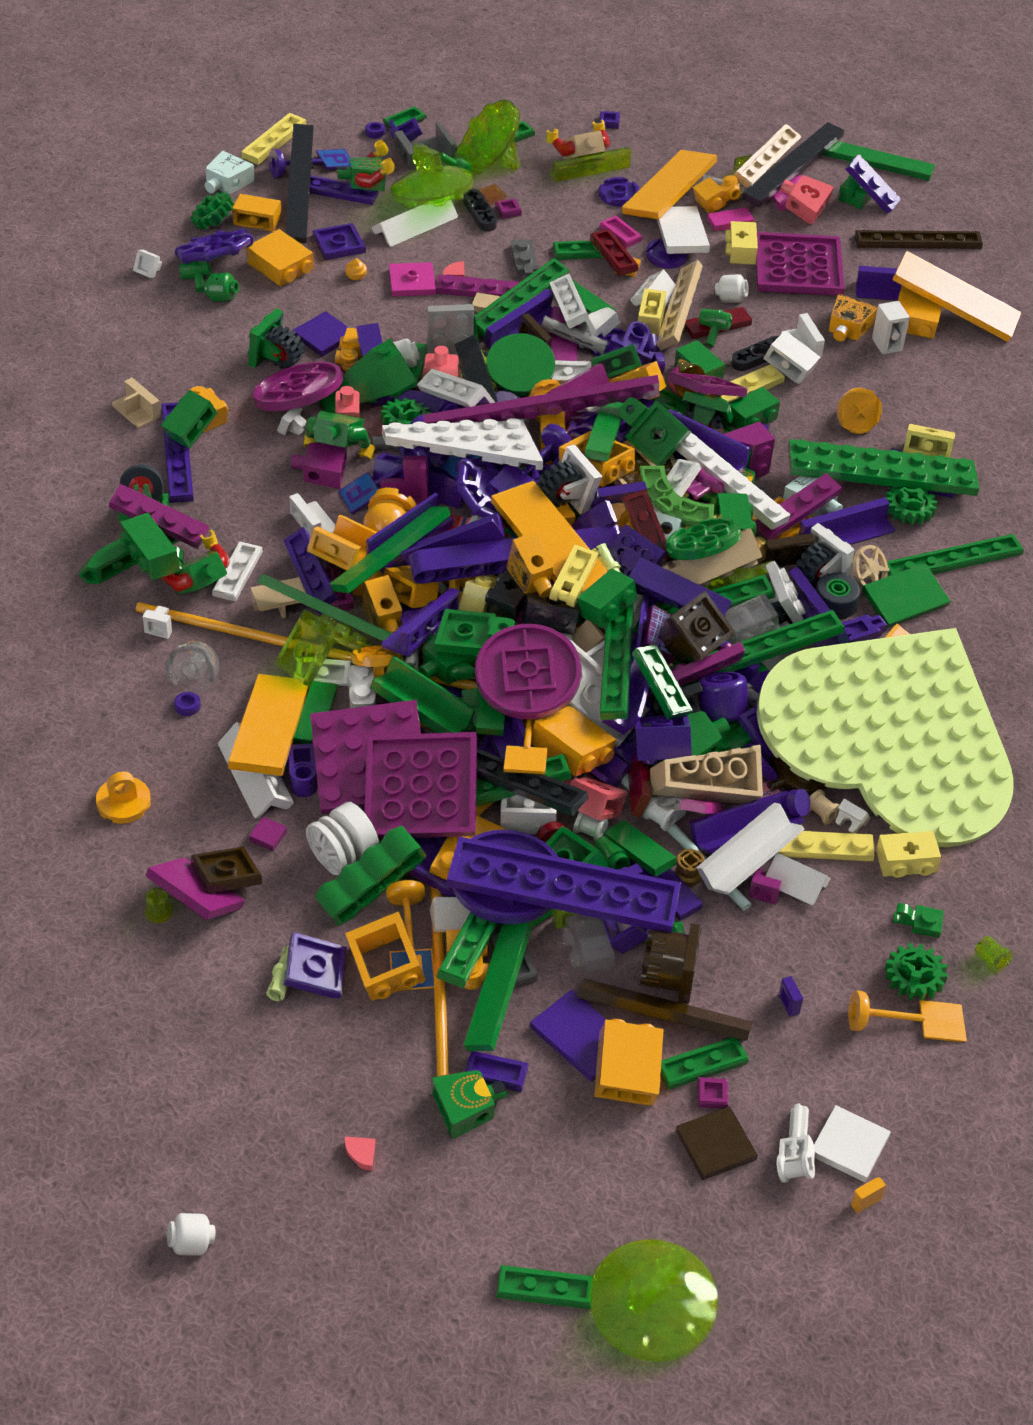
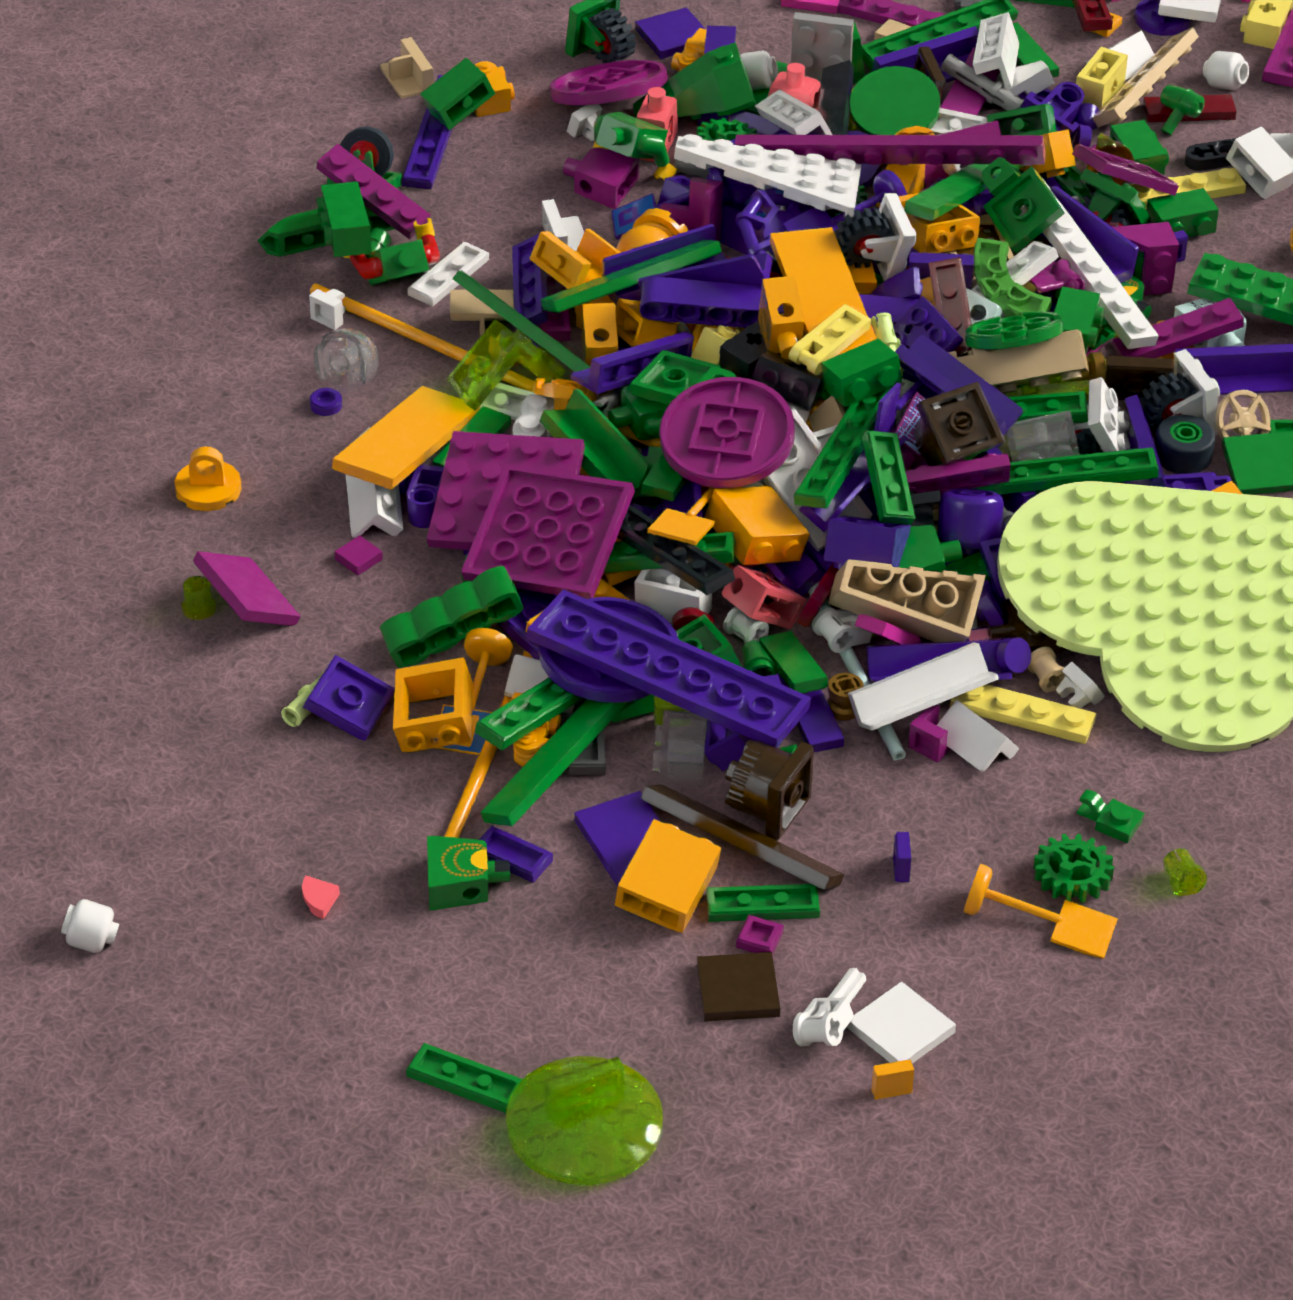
camera: 20 degrees right, 5 degrees down
(226, 869) = (290, 578): dark brown tile -> none
(341, 837) = (433, 571): white wheel -> none
(908, 854) = (1129, 742): light yellow brick -> none

